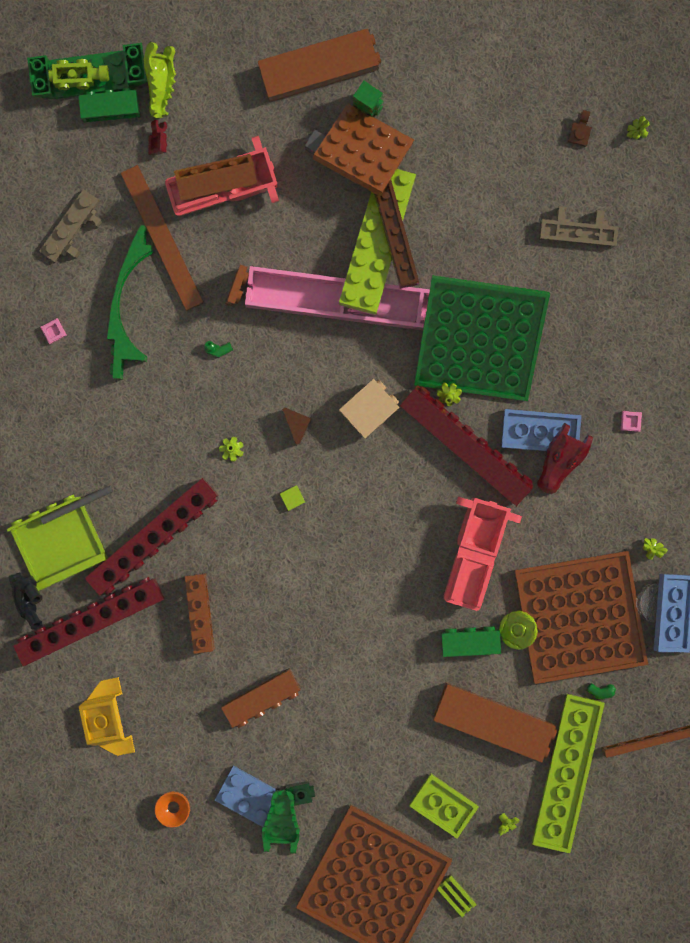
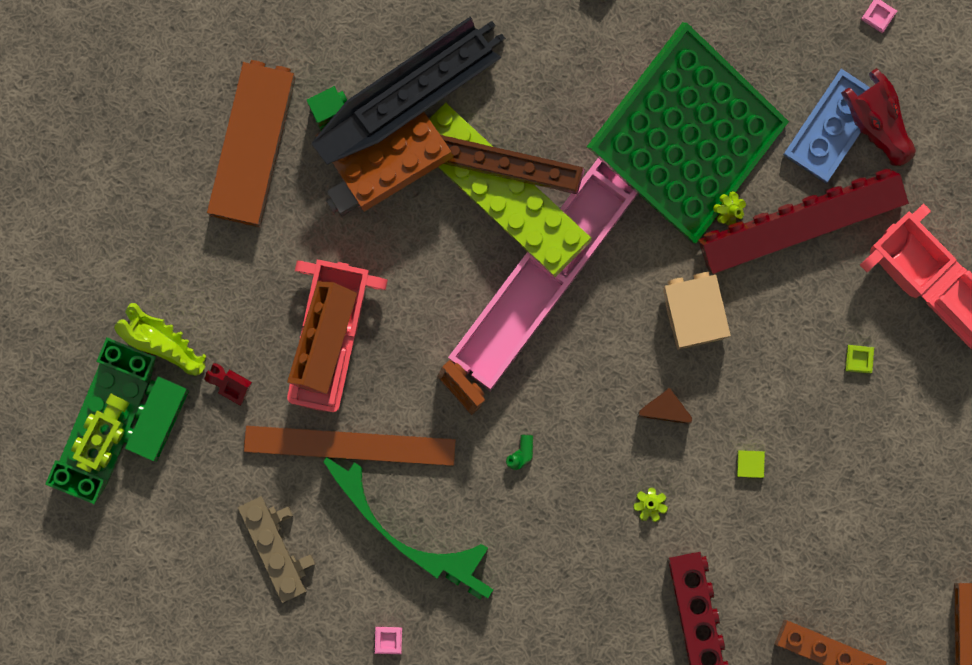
camera: 60 degrees left, 5 degrees down
(398, 530) = (859, 359): none -> lime tile
(408, 143) = (408, 90): none -> black hinge

